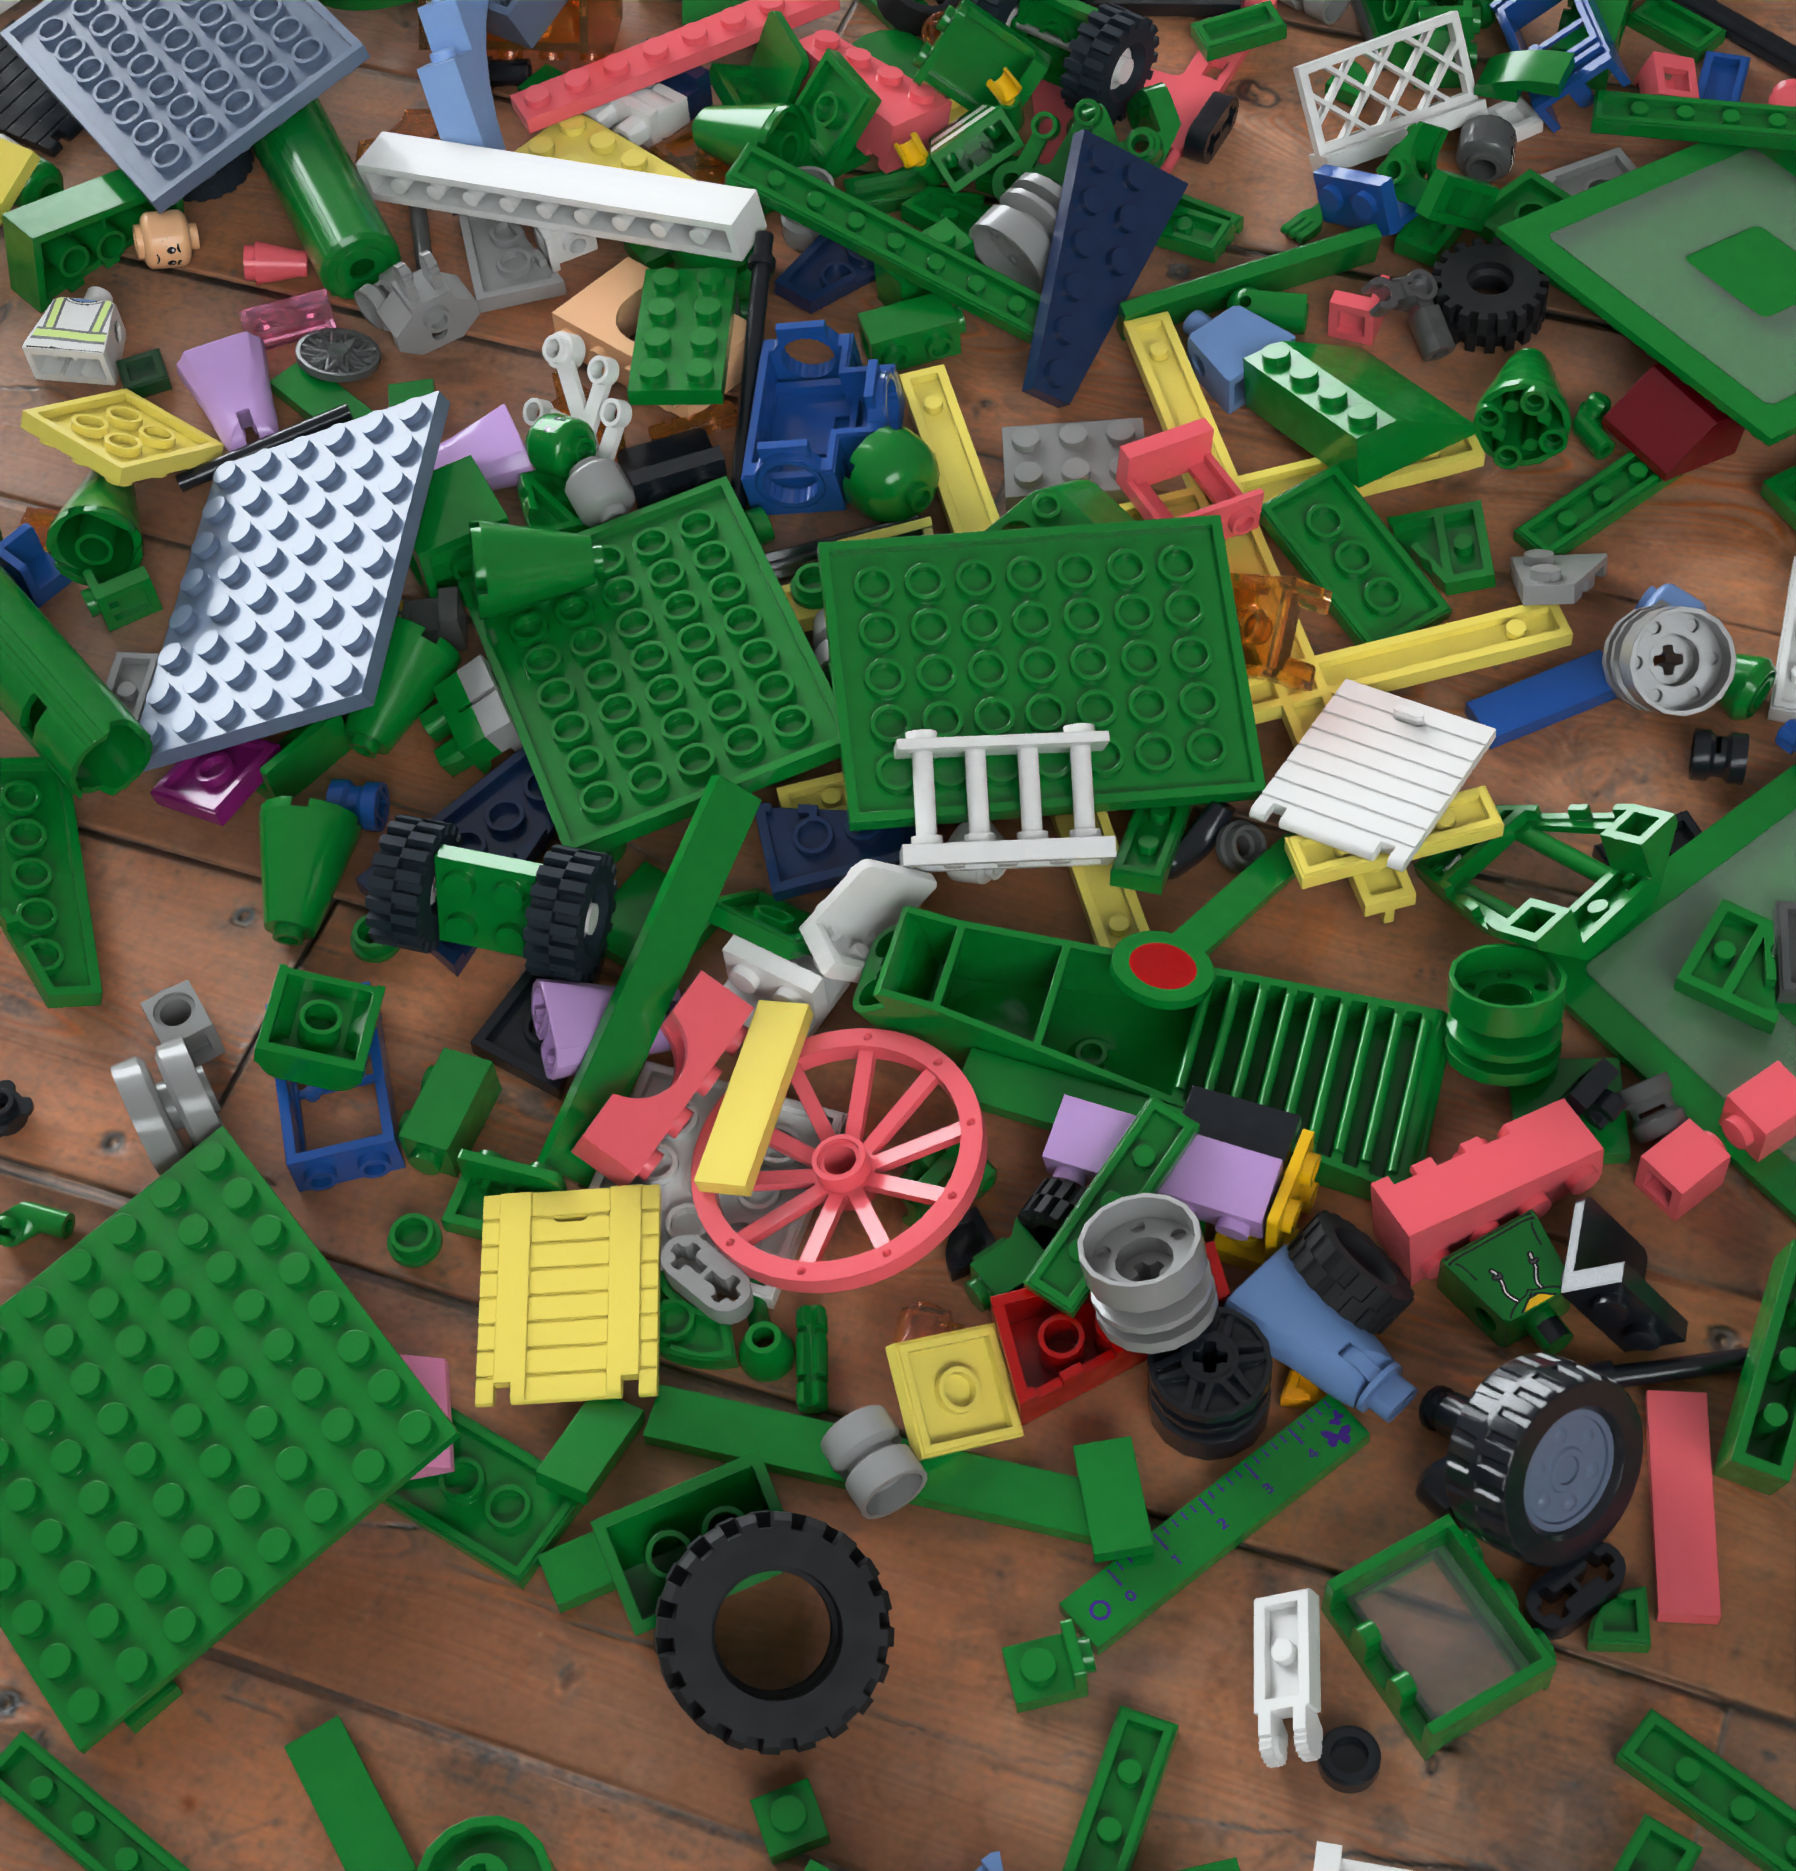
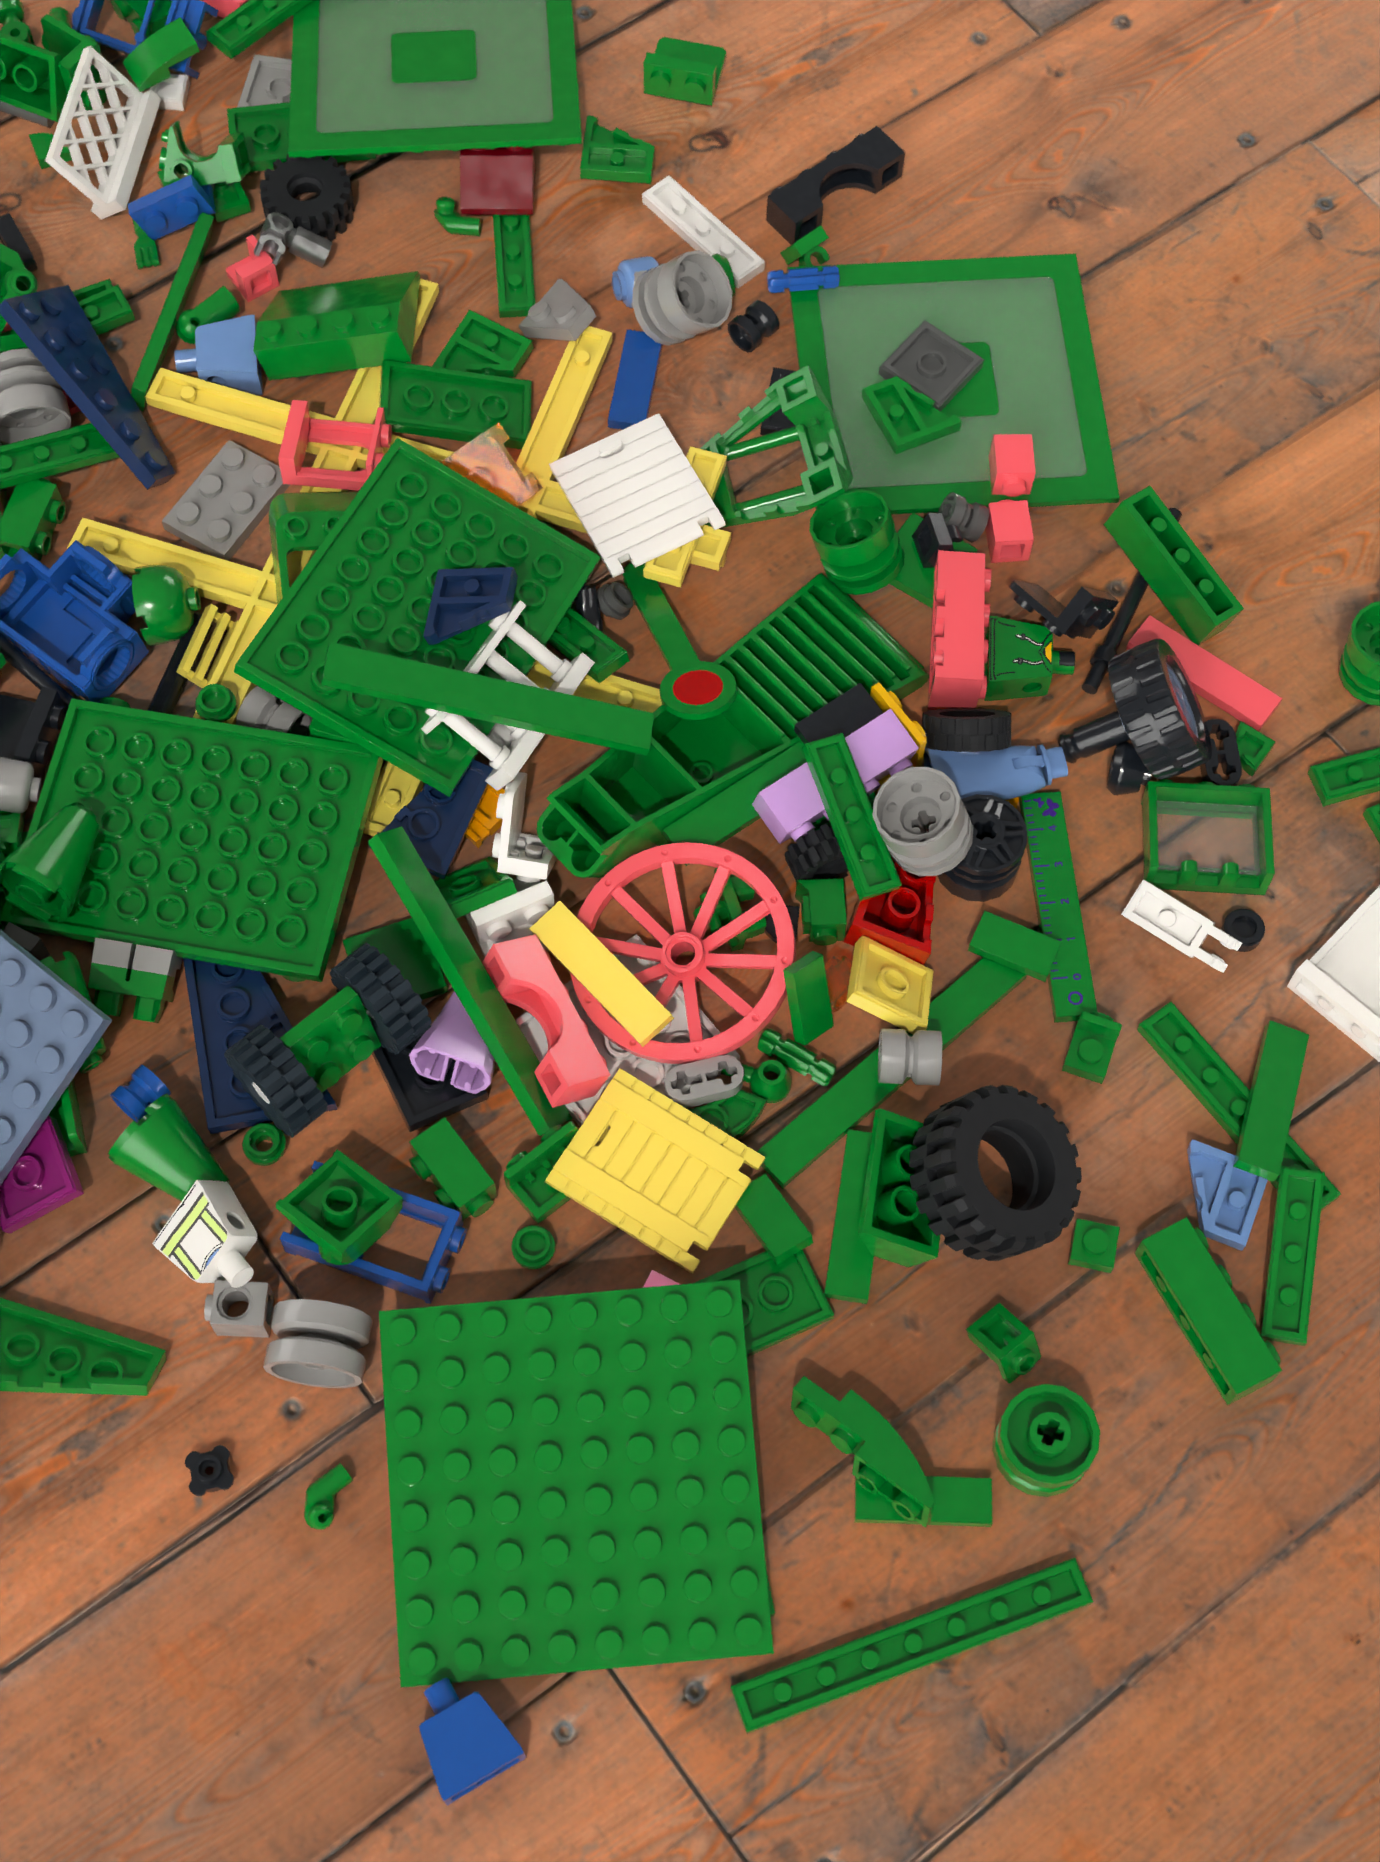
camera: 65 degrees left, 10 degrees up
(231, 944) = (209, 1235): none -> white torso
(367, 1712) = (881, 1457): none -> green slope
(594, 1786) = (1005, 1342): none -> green bracket
(871, 1312) = (808, 997): none -> green tile
(959, 777) = (487, 698): none -> green tile
(1070, 687) = (468, 599): none -> dark blue wing
(1486, 148) = (191, 114): dark grey head -> none
(1523, 412) = (421, 239): green cone -> none

